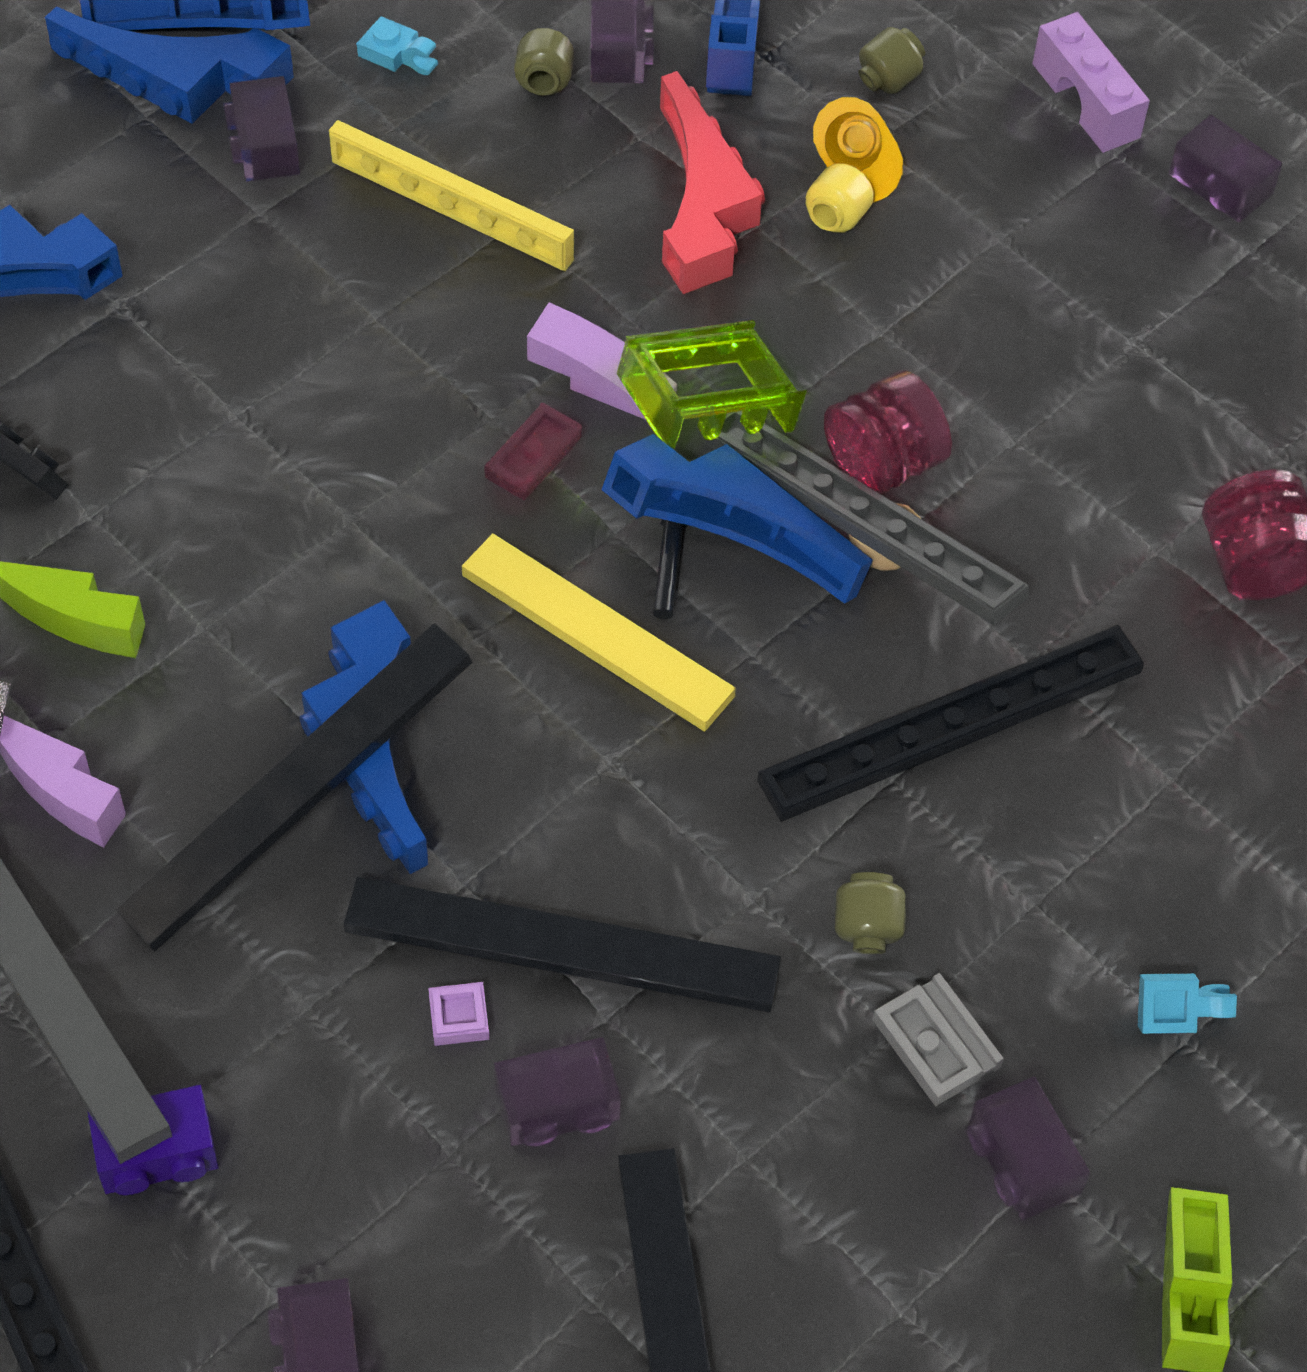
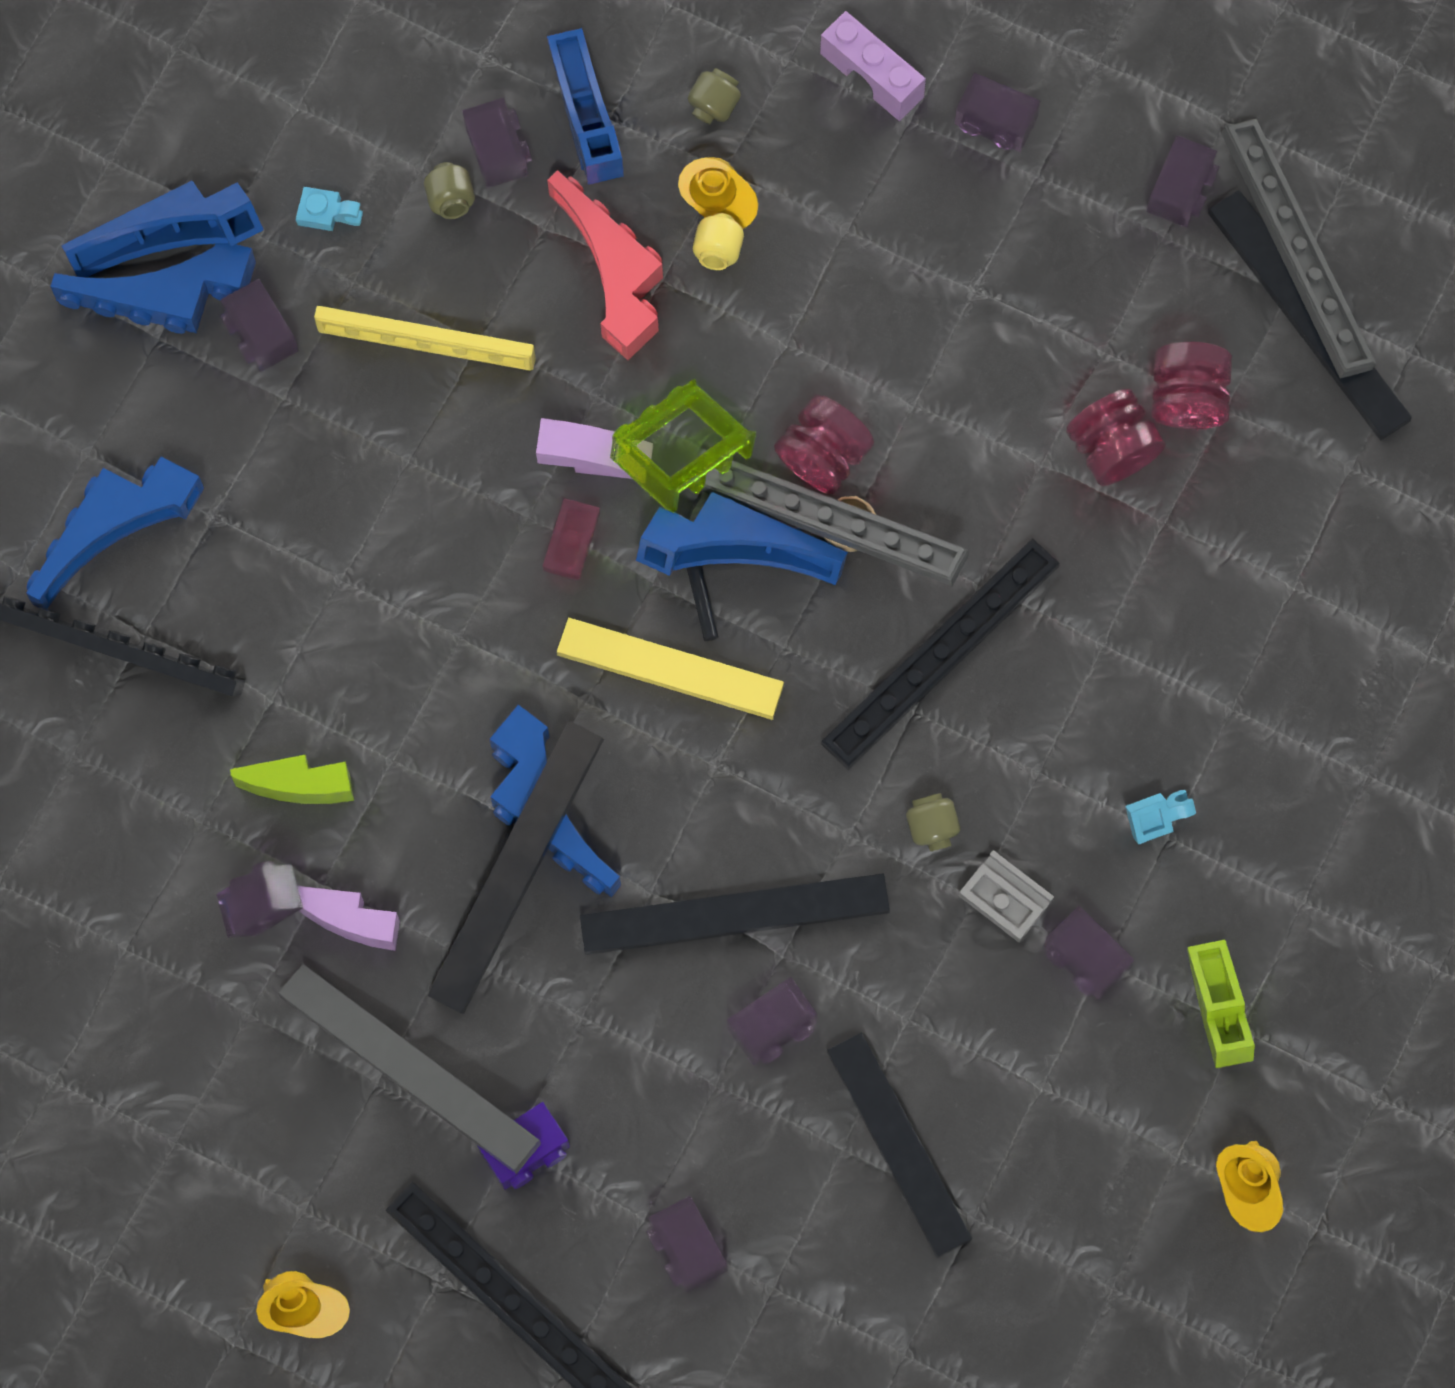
camera: 15 degrees left, 15 degrees up
(458, 1013) = (684, 987): lavender tile -> none

